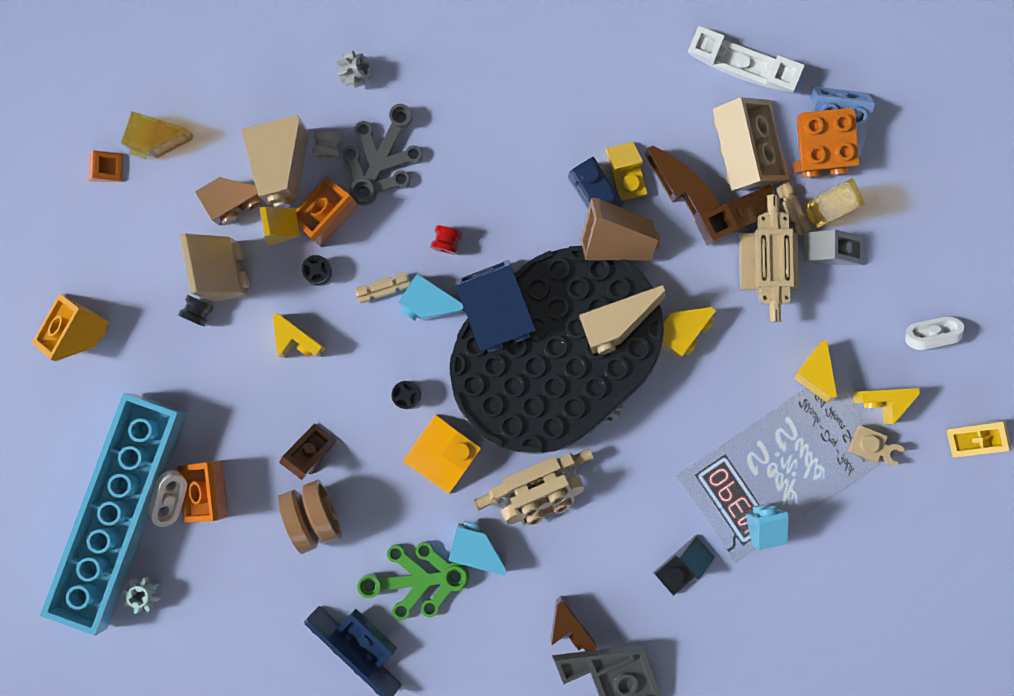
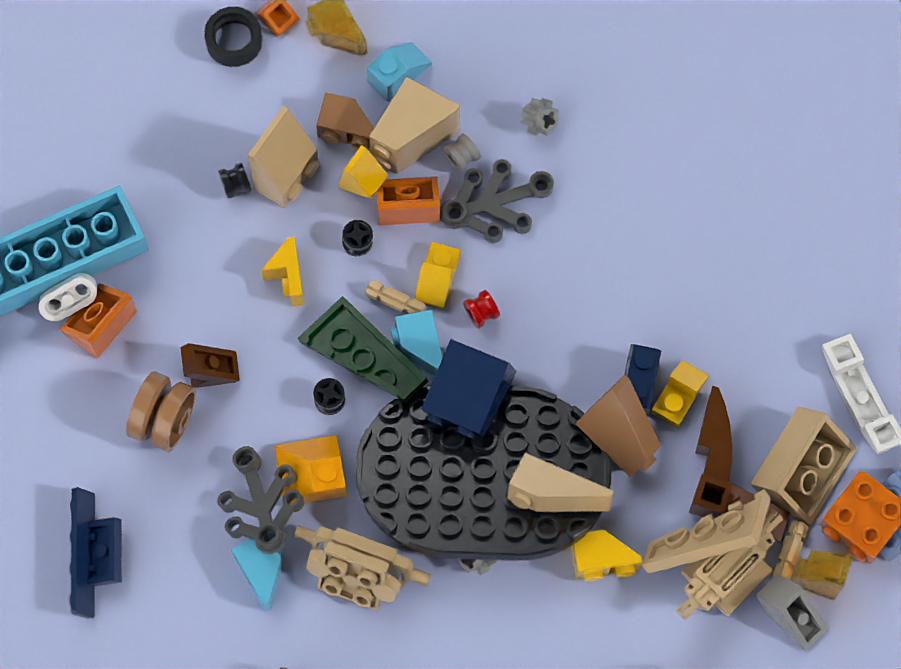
camera: 45 degrees right, 15 degrees down
(69, 329) = (127, 105): light orange slope -> none
(70, 204) = (233, 15): none -> black tyre
(225, 127) = (393, 67): none -> medium azure slope
(393, 244) = (437, 275): none -> yellow slope
(395, 343) = (361, 348): none -> dark green wing
(419, 580) = (191, 549): bright green plant -> none
(438, 511) = (262, 504): none -> dark grey plant
(757, 241) = (710, 536): none -> tan wing

